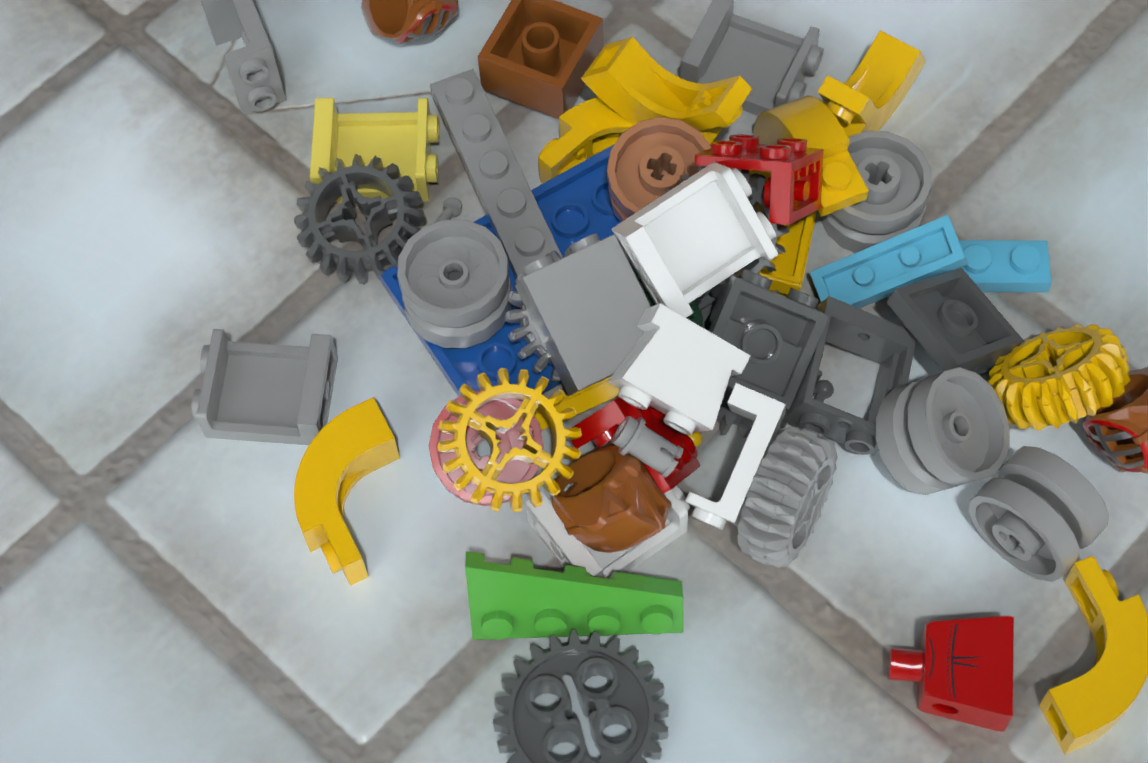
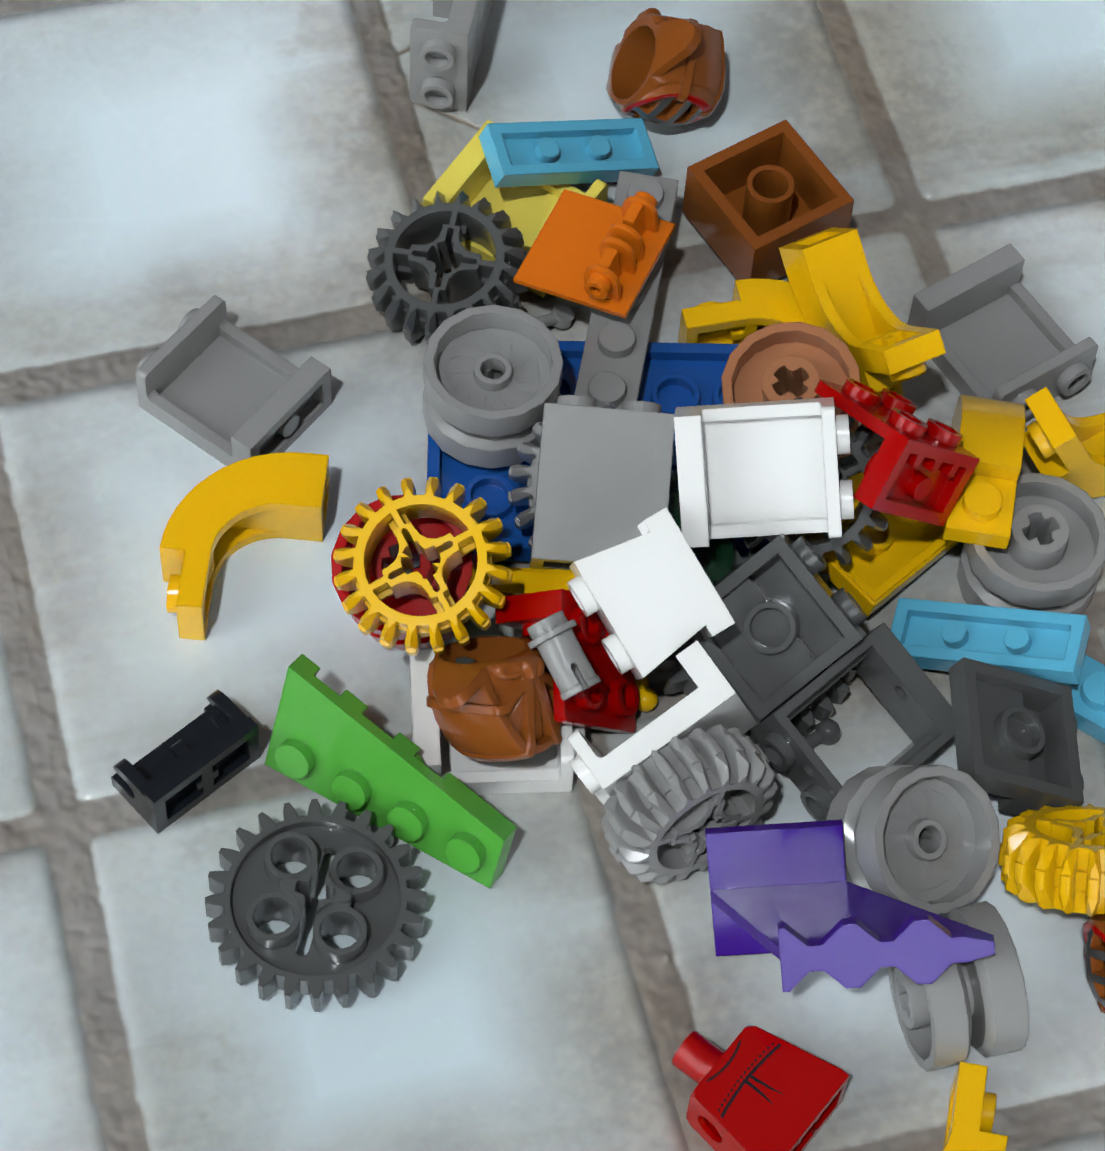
camera: 25 degrees right, 5 degrees down
(383, 90) = (566, 151): none -> medium azure plate
(422, 671) = (189, 763): none -> black hinge
(459, 149) = (596, 251): none -> orange hinge
(941, 527) = (789, 897): none -> dark purple piece

